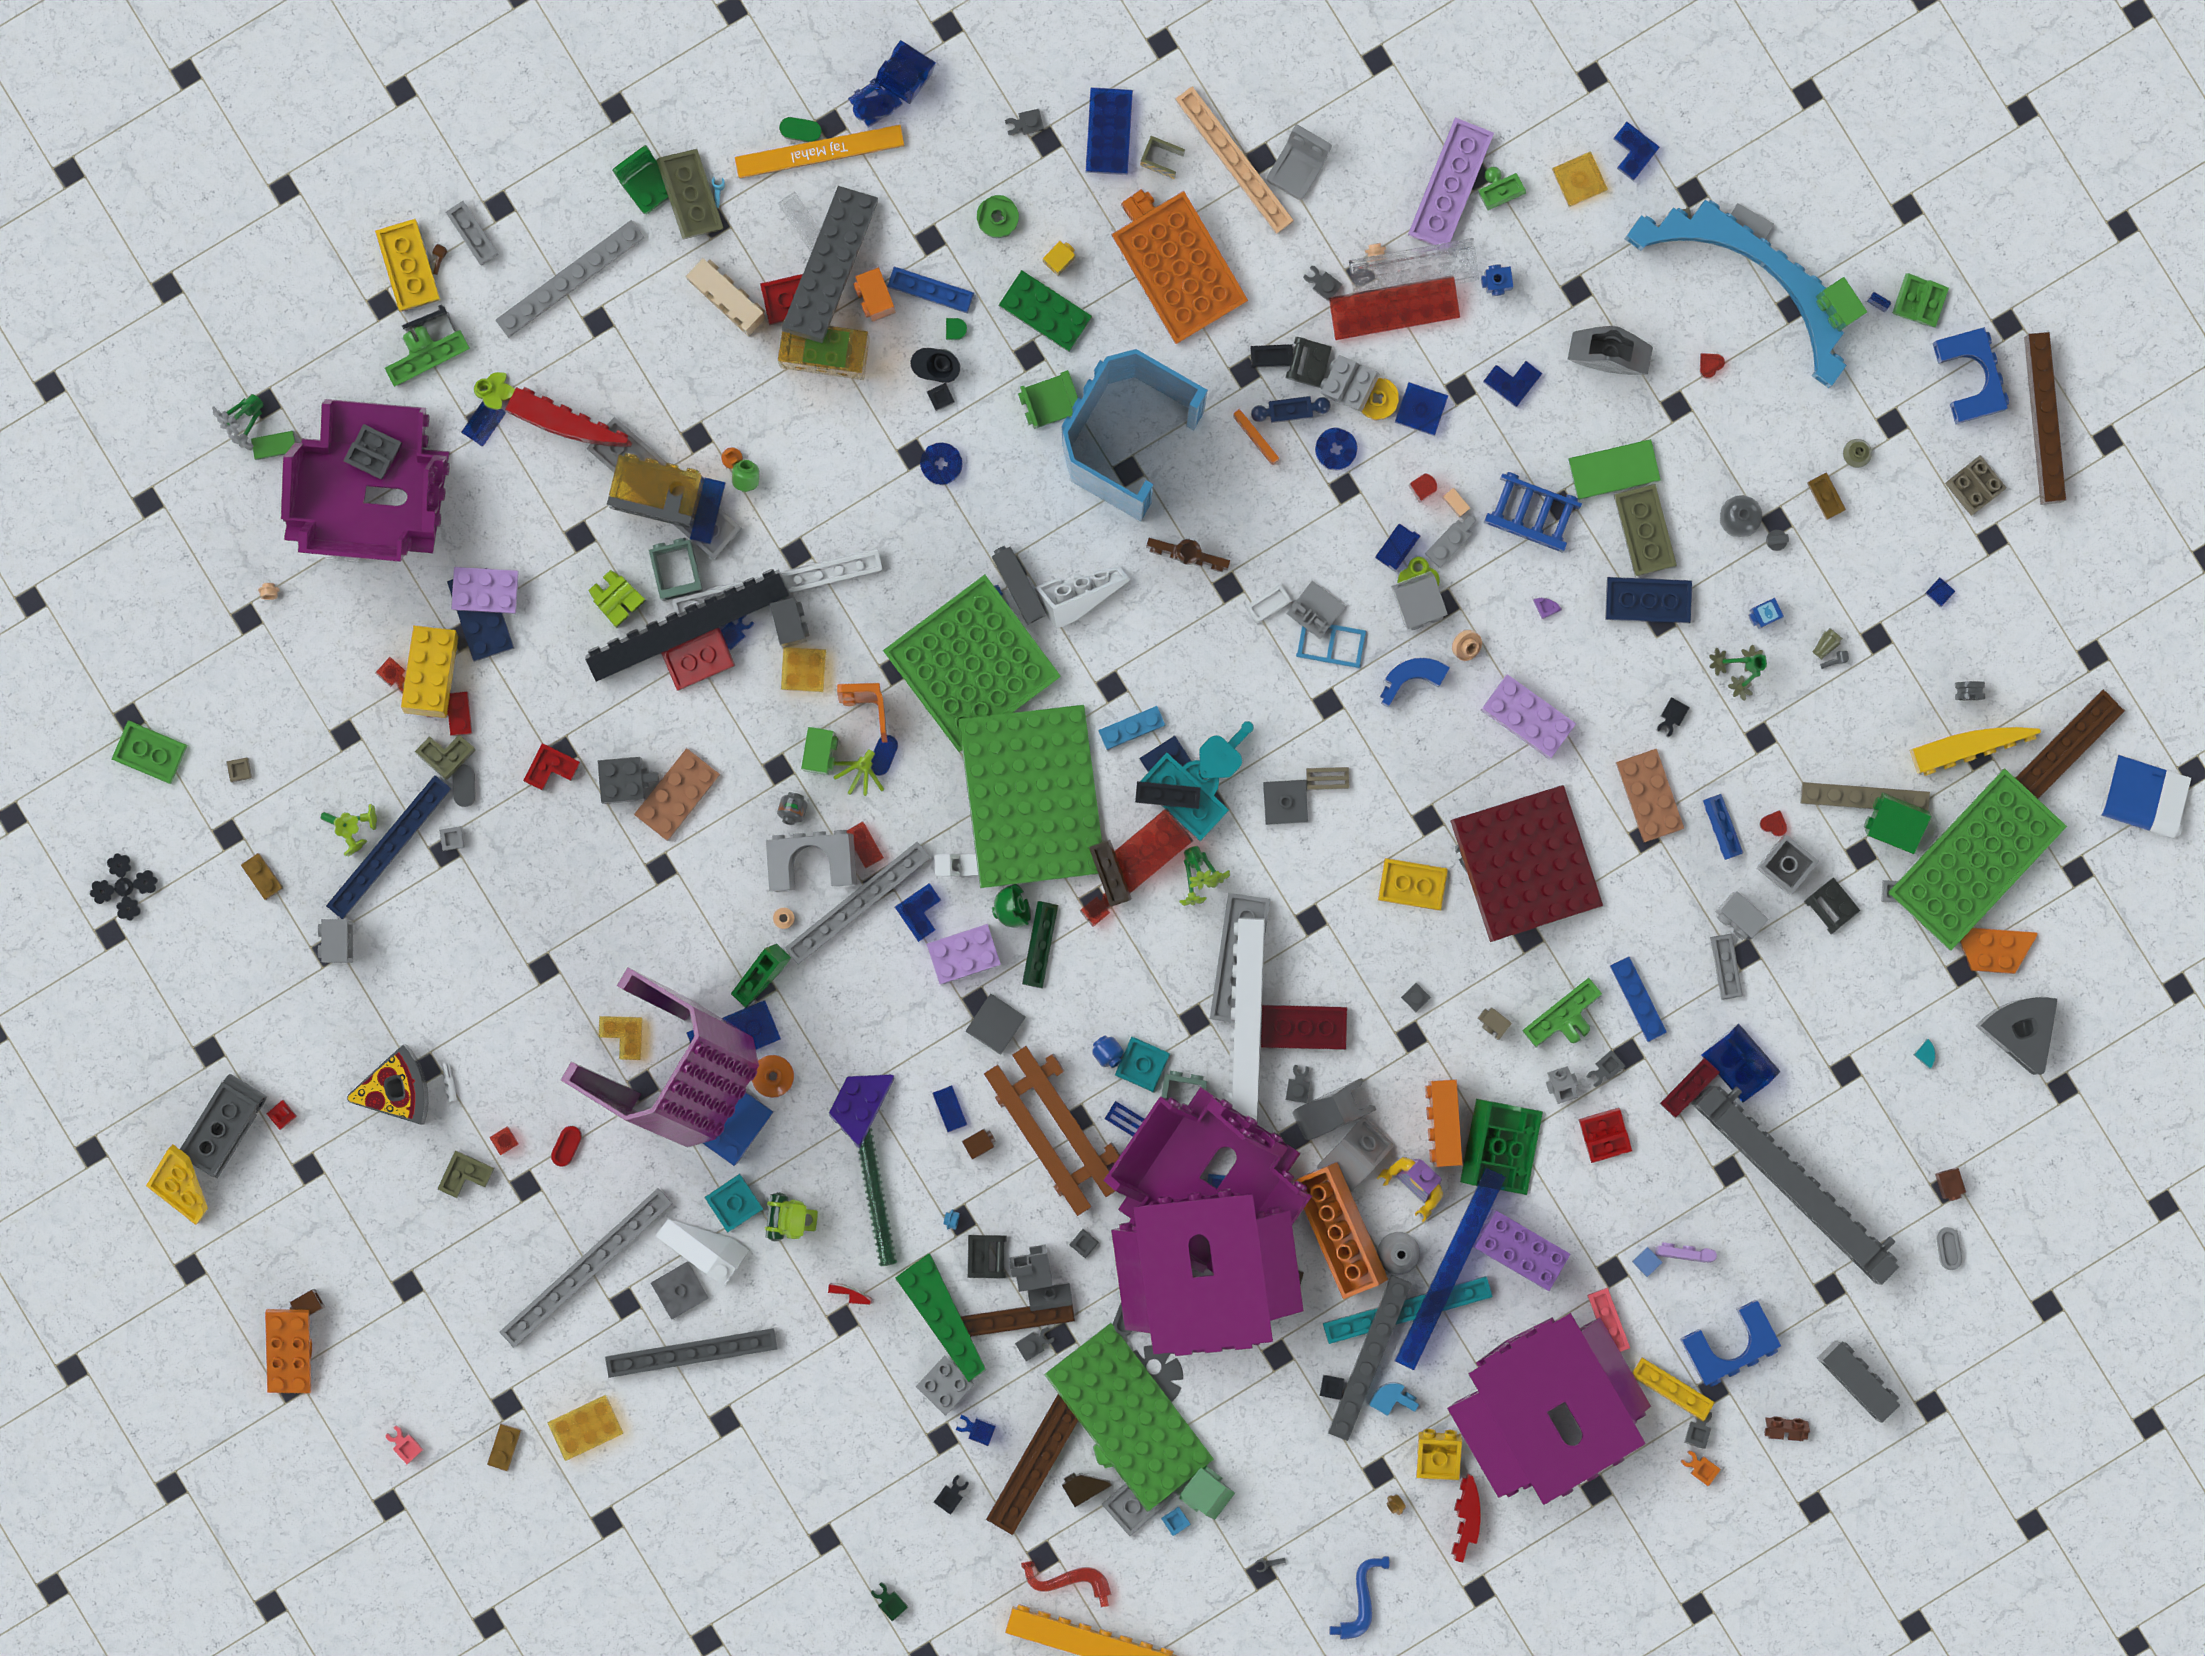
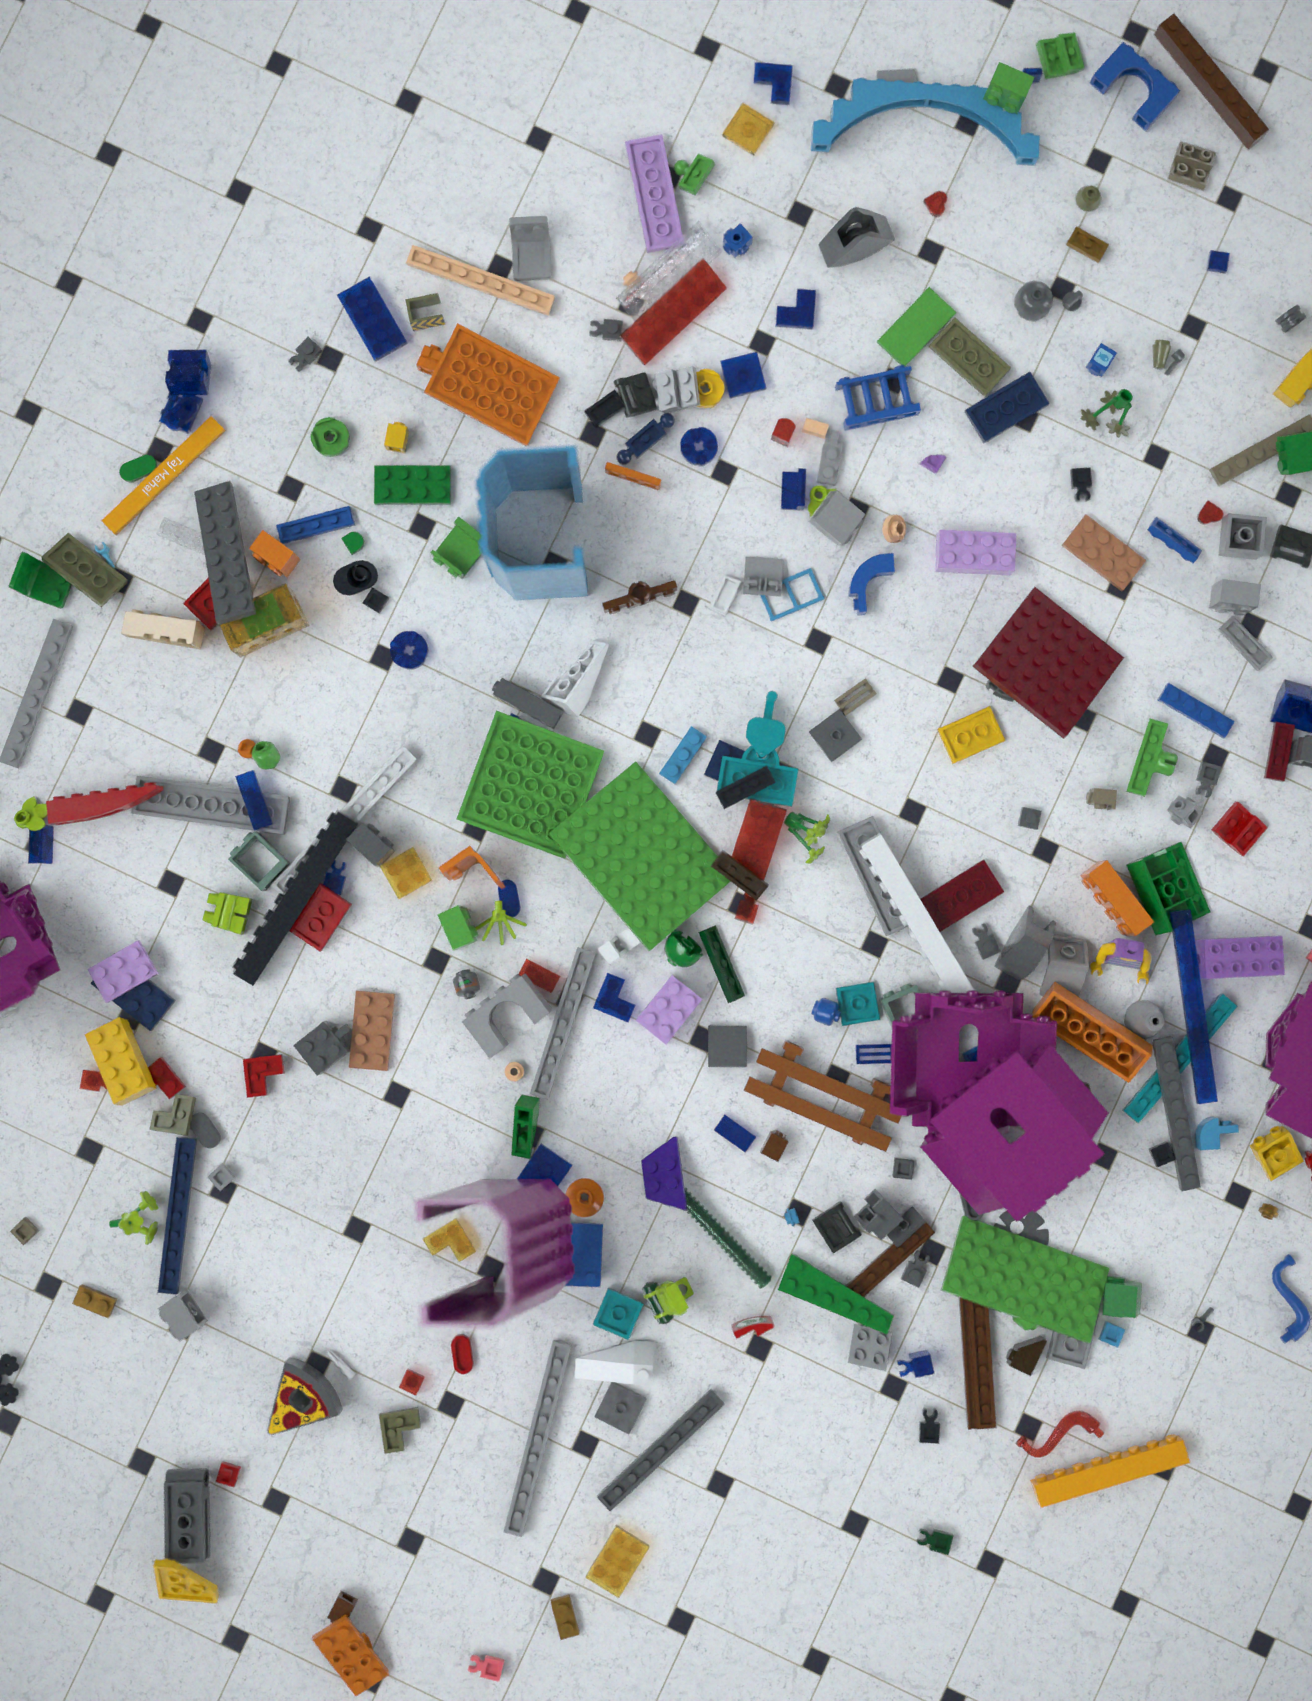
camera: 35 degrees left, 0 degrees up
(647, 490) = (196, 811): clear yellow piece -> none

